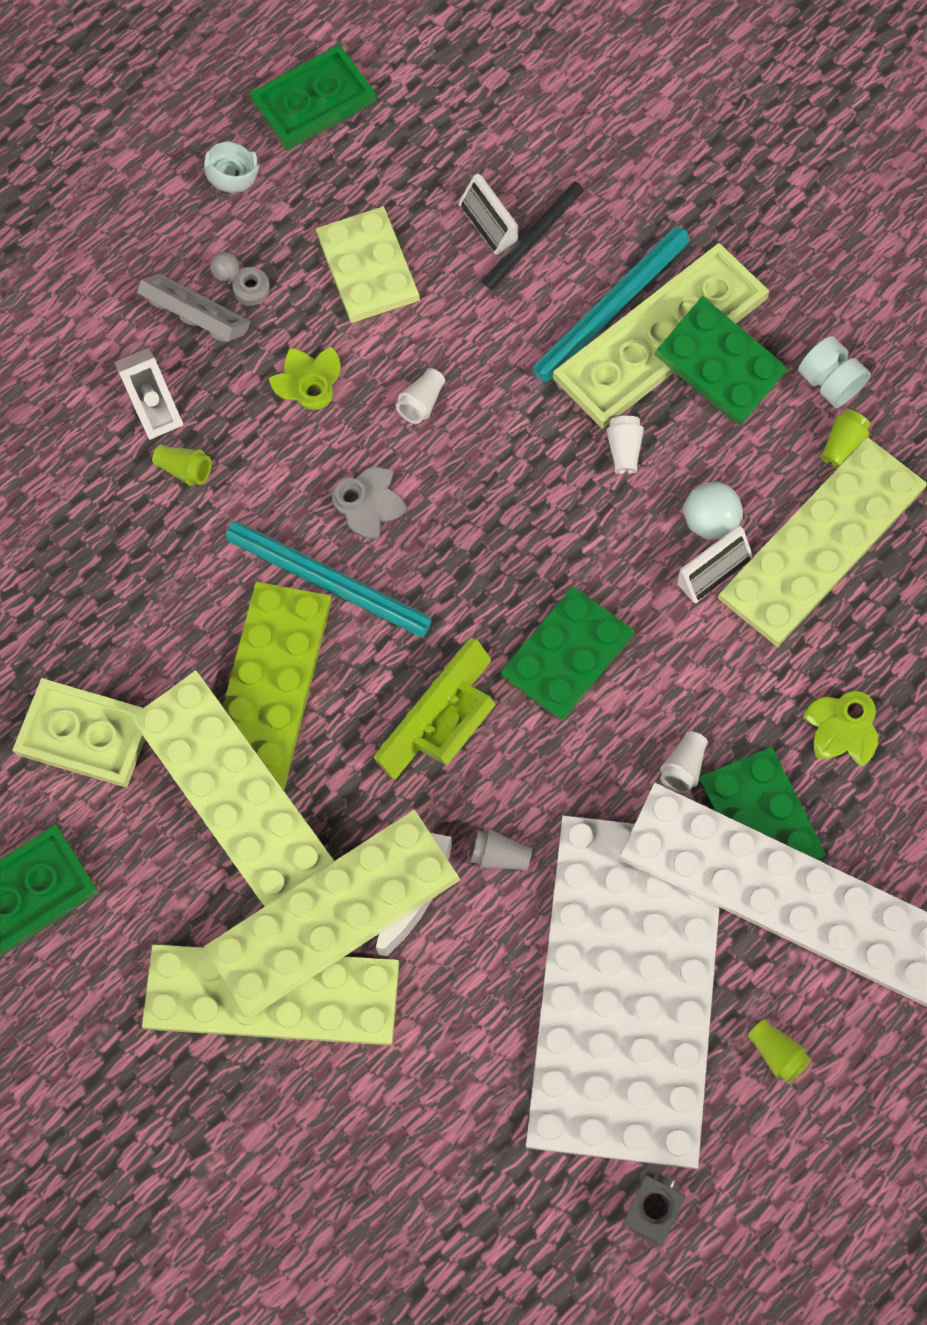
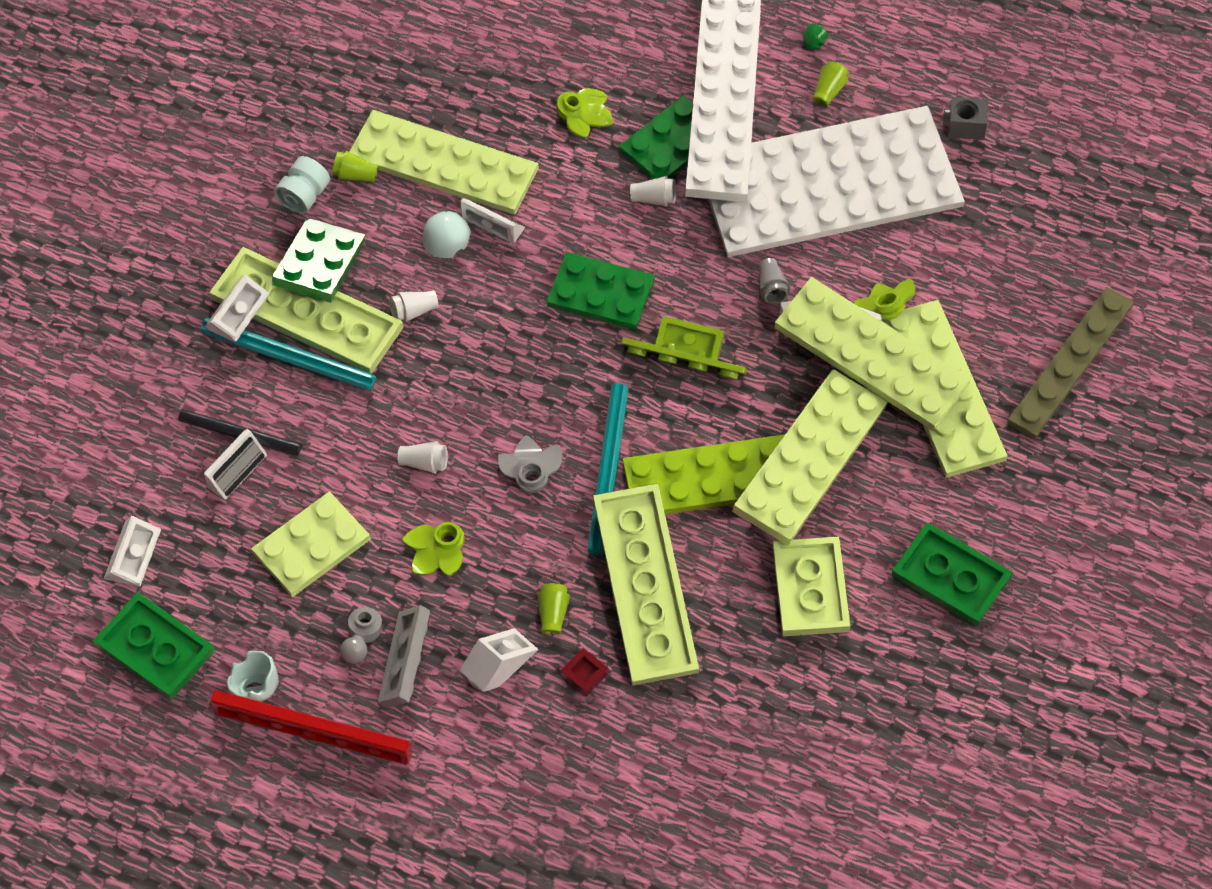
camera: 115 degrees left, 10 degrees down
(96, 469) = (584, 671): none -> dark red plate
(152, 208) = (311, 727): none -> red tile
(162, 557) = (645, 584): none -> yellowish green plate
(238, 1176) = (1070, 363): none -> olive plate
(417, 978) = (888, 301): none -> lime plate
(430, 106) = (132, 552): none -> white slope
(680, 260) = (237, 309): none -> white slope
(865, 1062) = (814, 37): none -> green hinge

